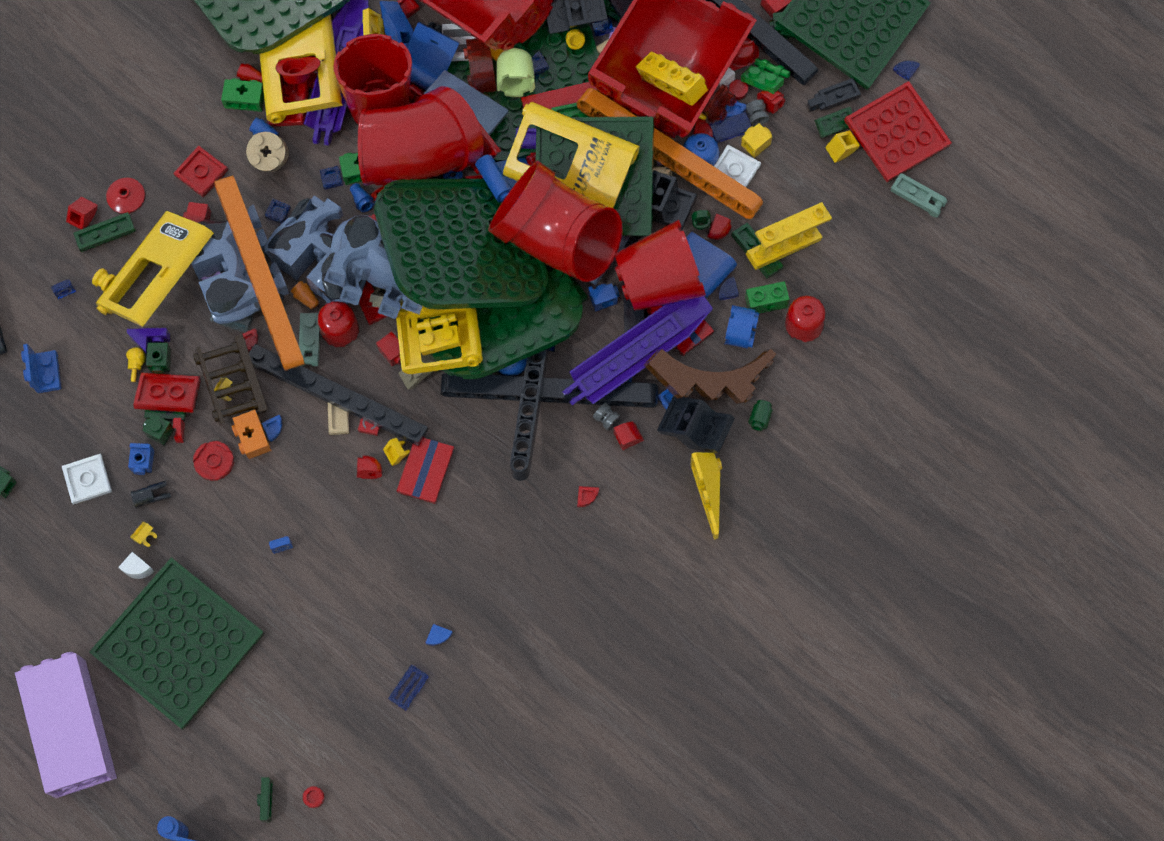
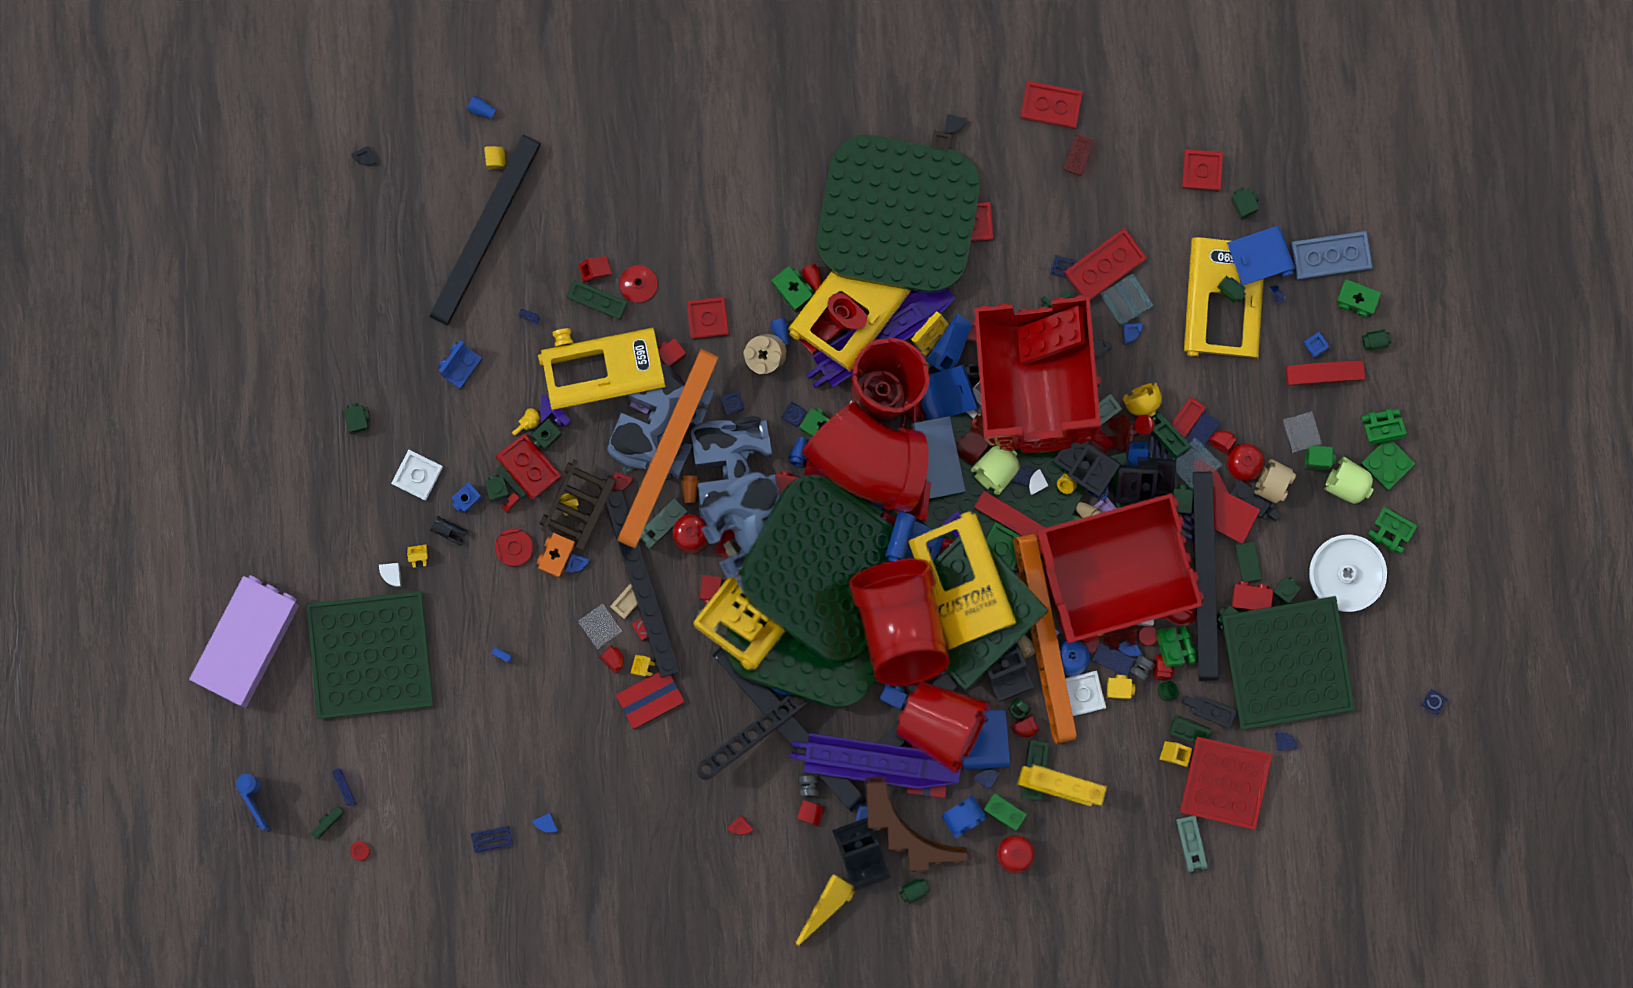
camera: 40 degrees right, 10 degrees up
(253, 760) = (343, 785): none -> clear blue tile
(335, 455) = (600, 626): none -> clear piece
(553, 58) = (1037, 482): none -> white tile
(672, 78) = (1101, 586): yellow brick -> none
(791, 109) = (1168, 691): none -> dark green tile

